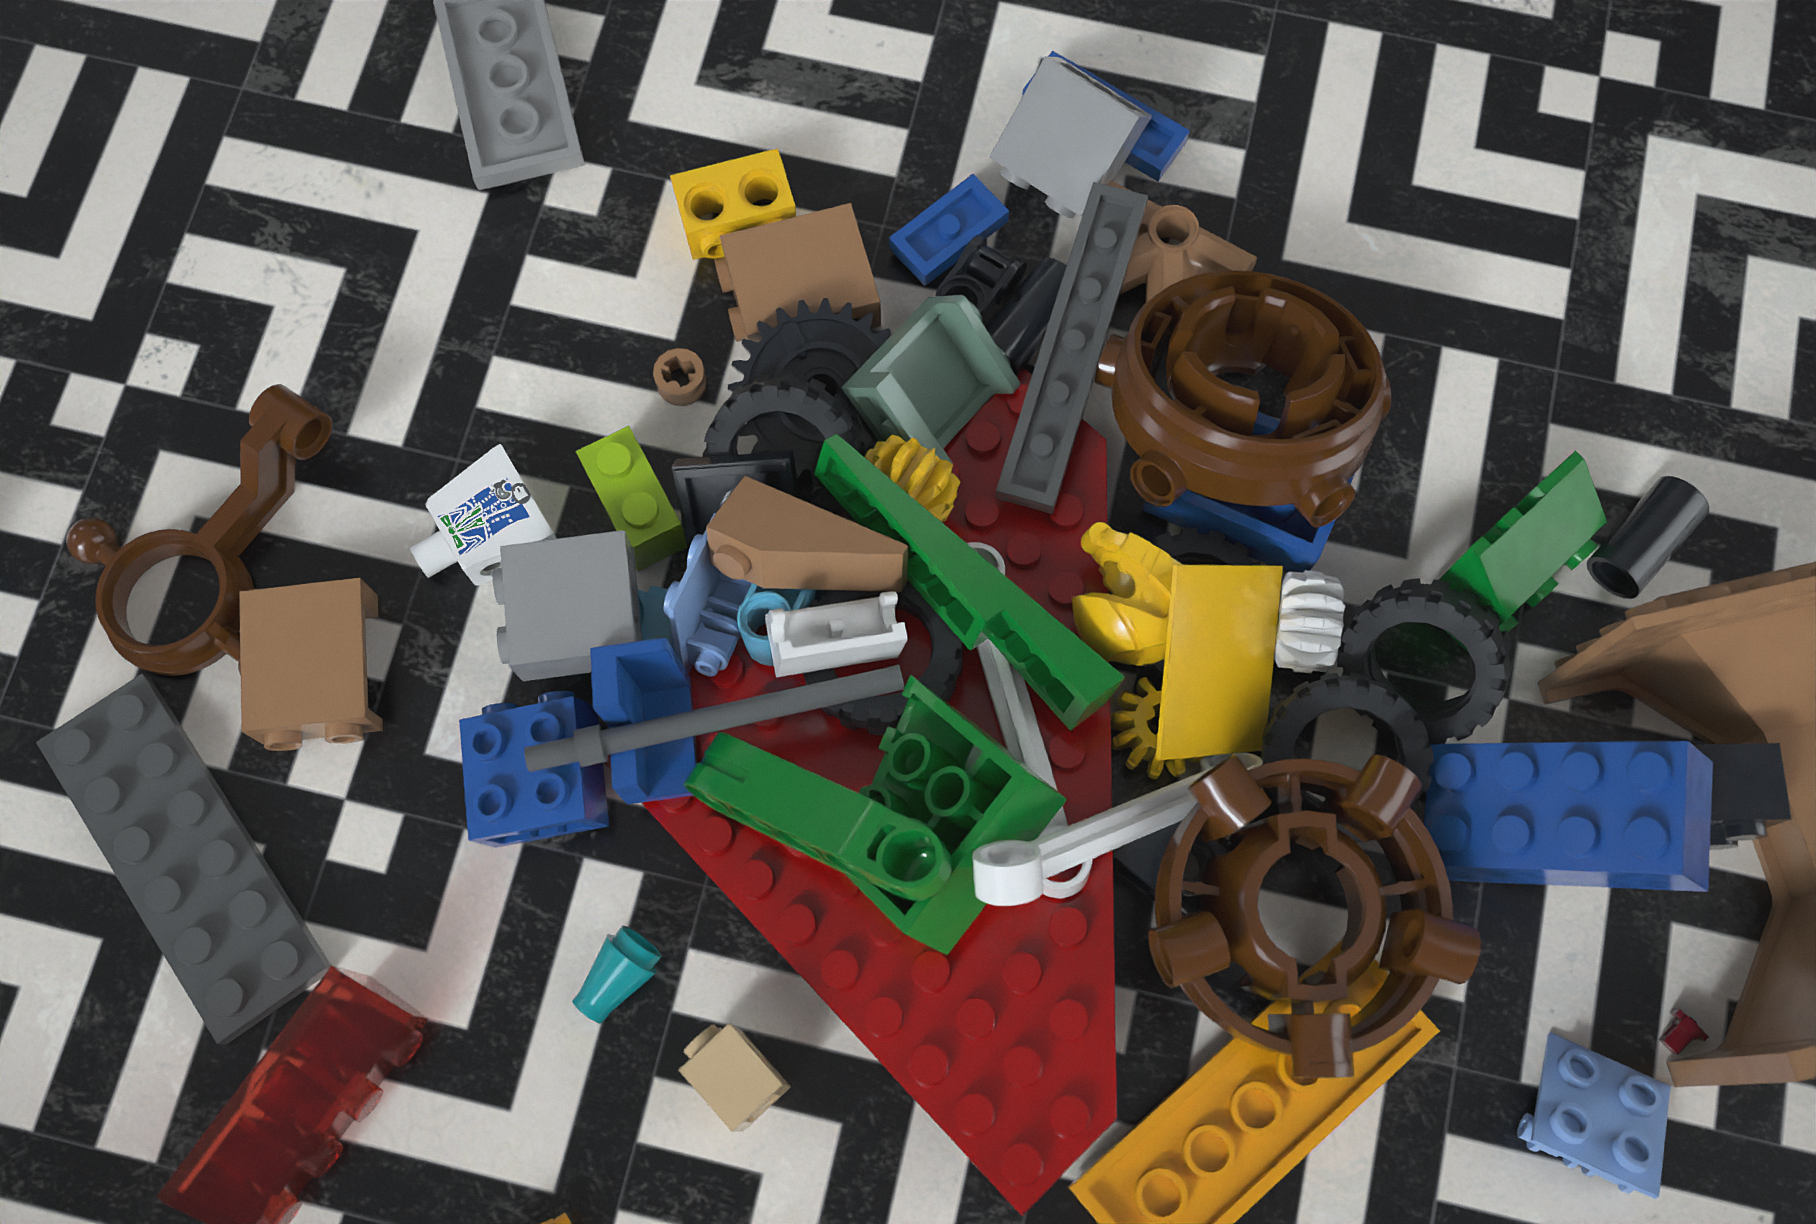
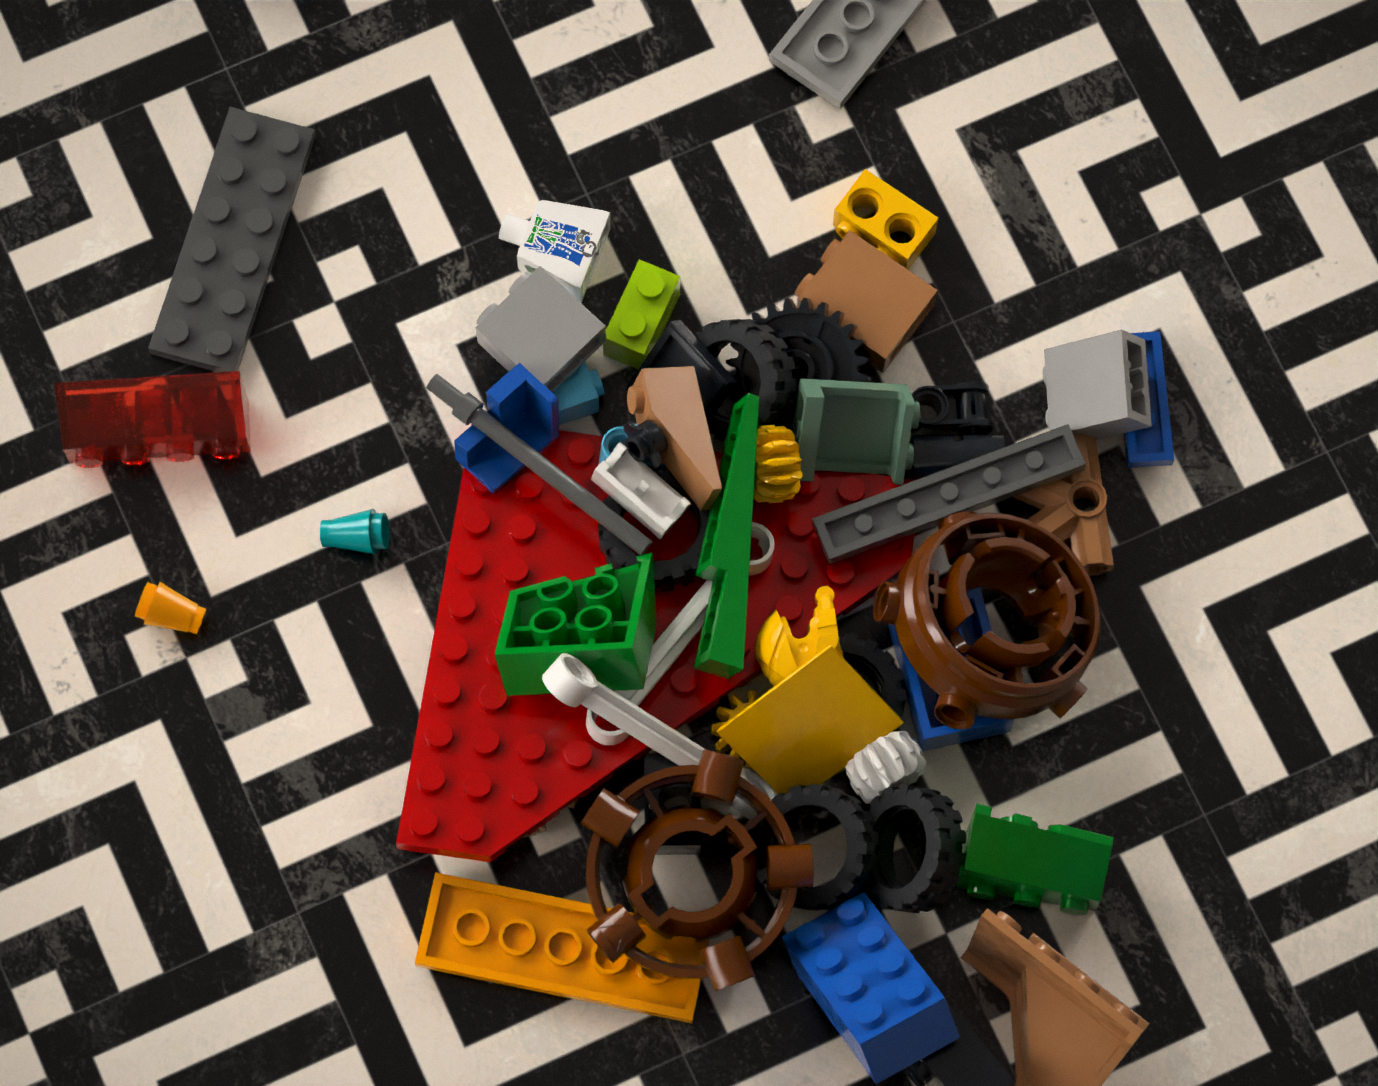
camera: 50 degrees right, 0 degrees up
(281, 430) = (515, 86): reddish brown piece -> none
(306, 663) = (393, 214): medium nougat panel -> none
(522, 806) = (404, 400): blue brick -> none
(689, 363) = (739, 267): medium nougat bush -> none
(704, 612) = (596, 409): light blue hinge -> none
(732, 1076) = (350, 637): tan brick -> none
(788, 585) = (645, 442): none -> black plate
(820, 819) = (524, 562): green piece -> none
(945, 228) = (978, 360): blue plate -> none
(1648, 537) = (1111, 938): black pin -> none

